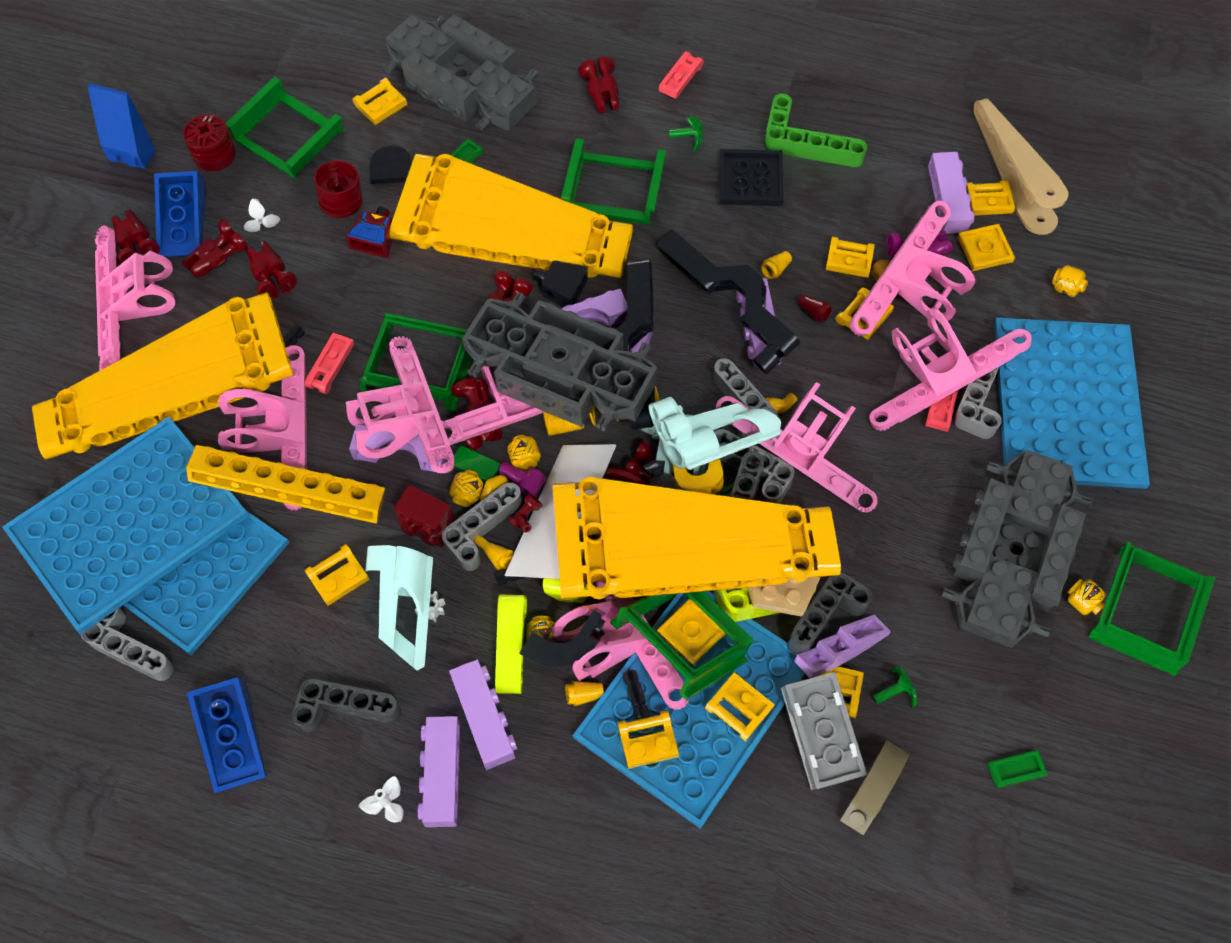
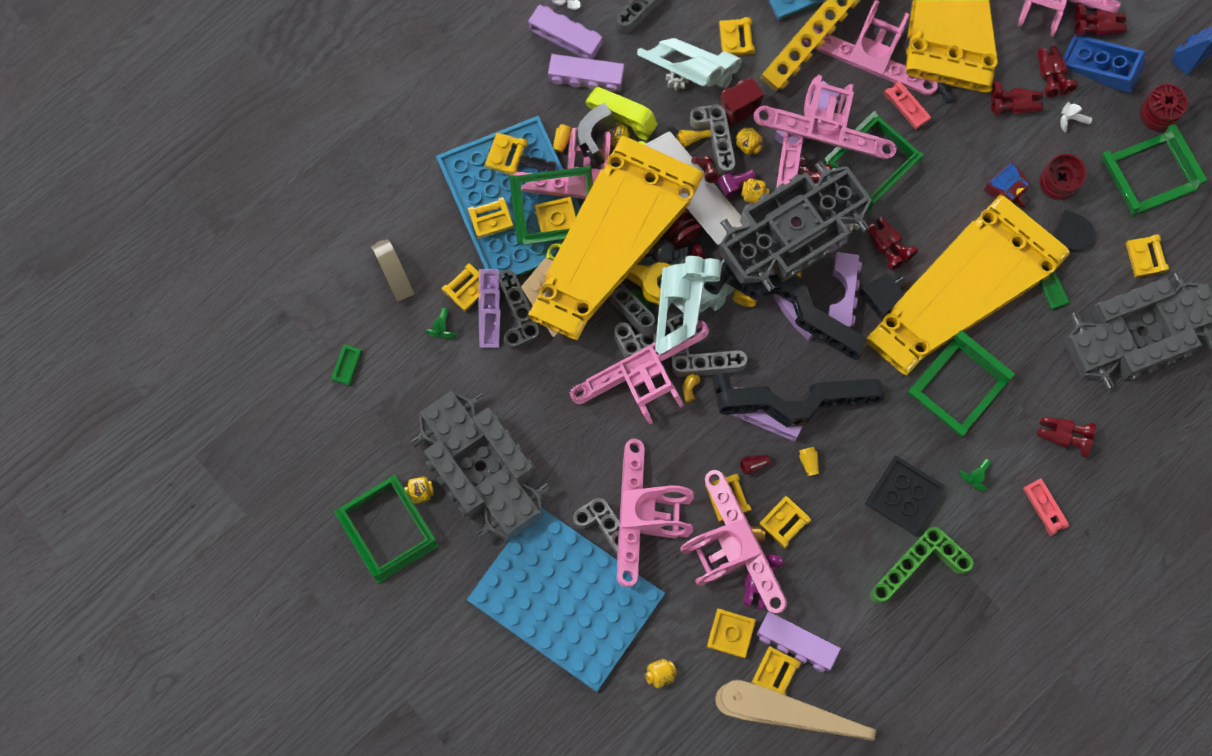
camera: 120 degrees right, 10 degrees up
(470, 460) = (765, 159): green tile -> none
(492, 485) = (741, 160): yellow arm -> none
(823, 731) = (442, 255): light grey piece -> none
(941, 413) = (611, 493): coral plate -> none

